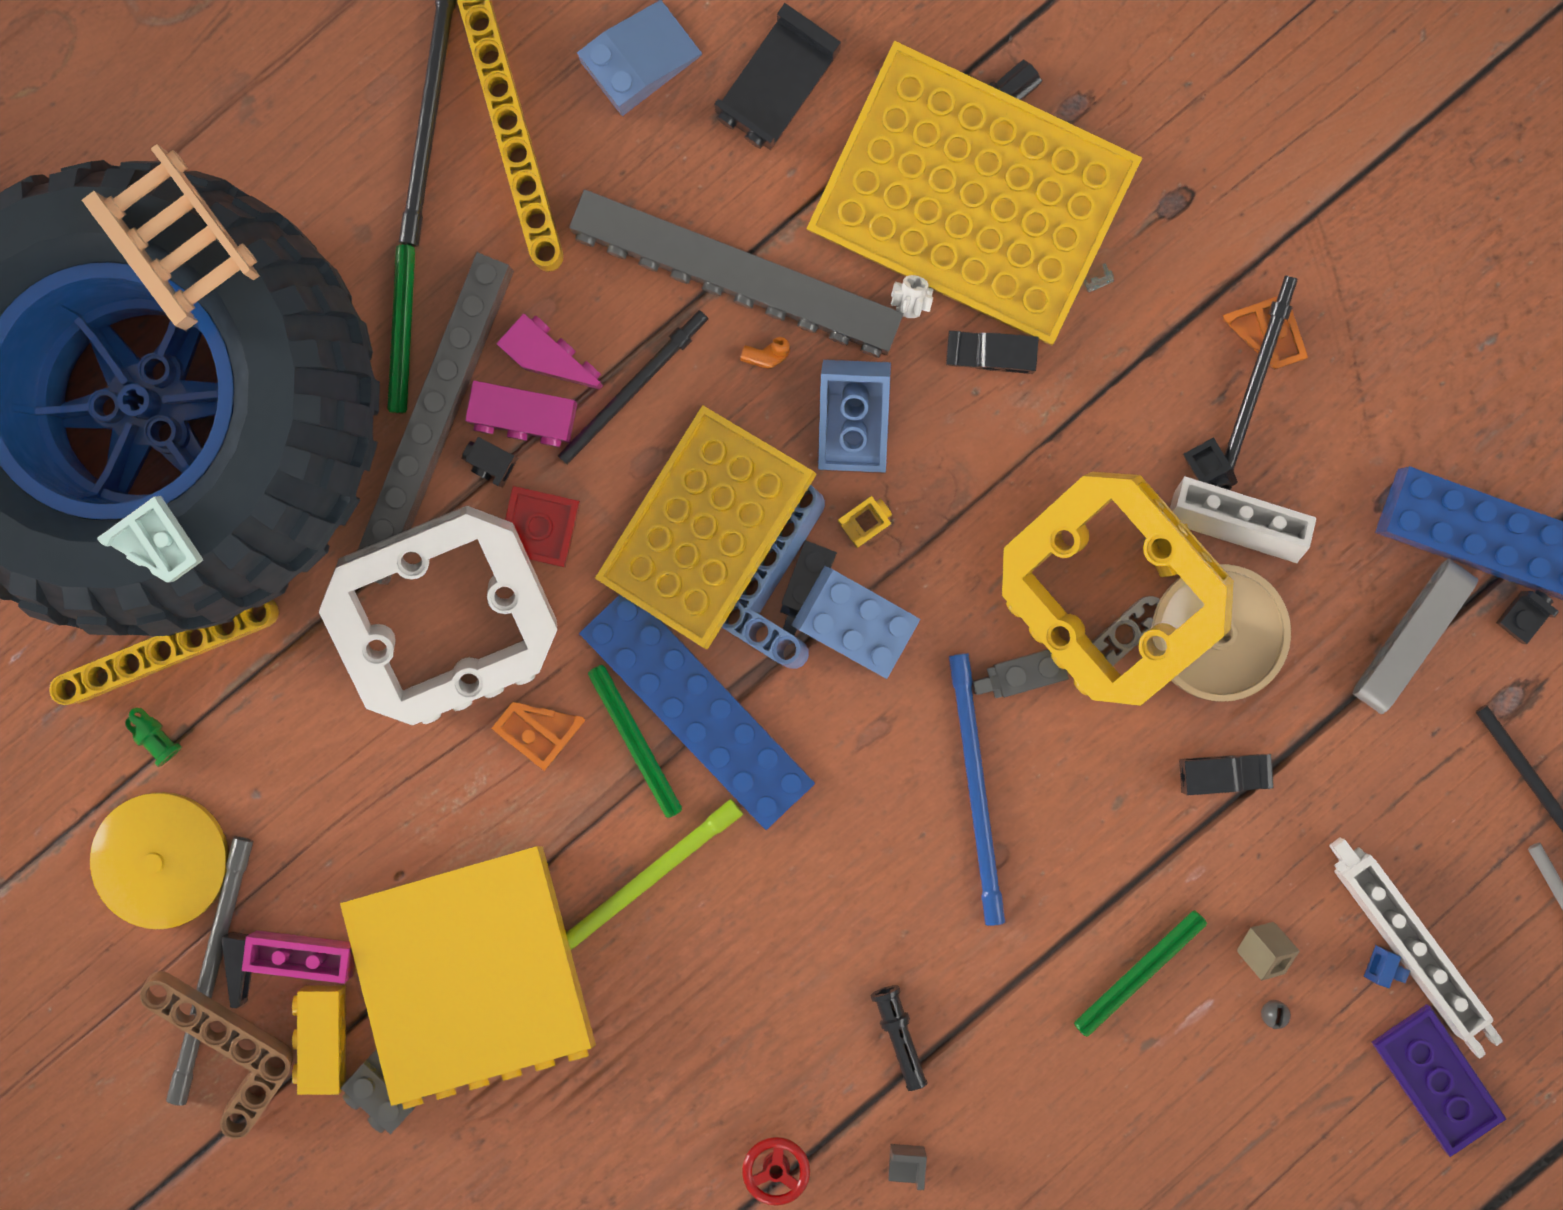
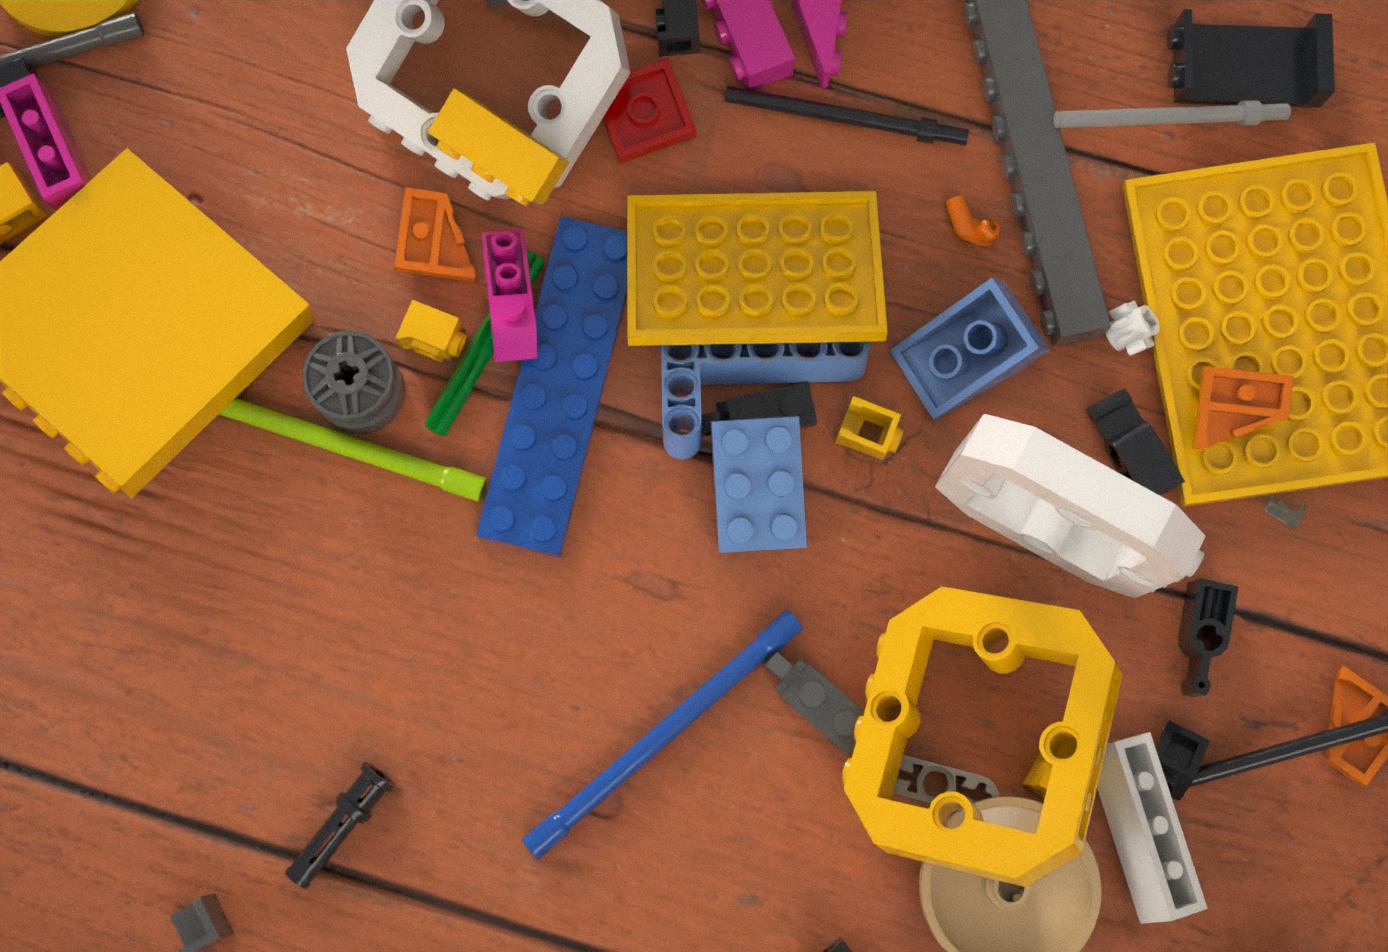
camera: 55 degrees right, 10 degrees down
(512, 651) = (497, 148): none -> yellow brick
(607, 773) = (431, 332): none -> yellow window
(616, 705) = (509, 295): none -> dark pink slope
(627, 838) = (376, 389): none -> dark grey wheel
(776, 1158) = (123, 784): red piece -> none
(811, 109) = (1244, 113): none -> light grey bar
(1011, 264) = (1238, 403): none -> orange wing
(1017, 442) = (1070, 508): none -> white panel
(1131, 377) = (1209, 608): none -> black piece

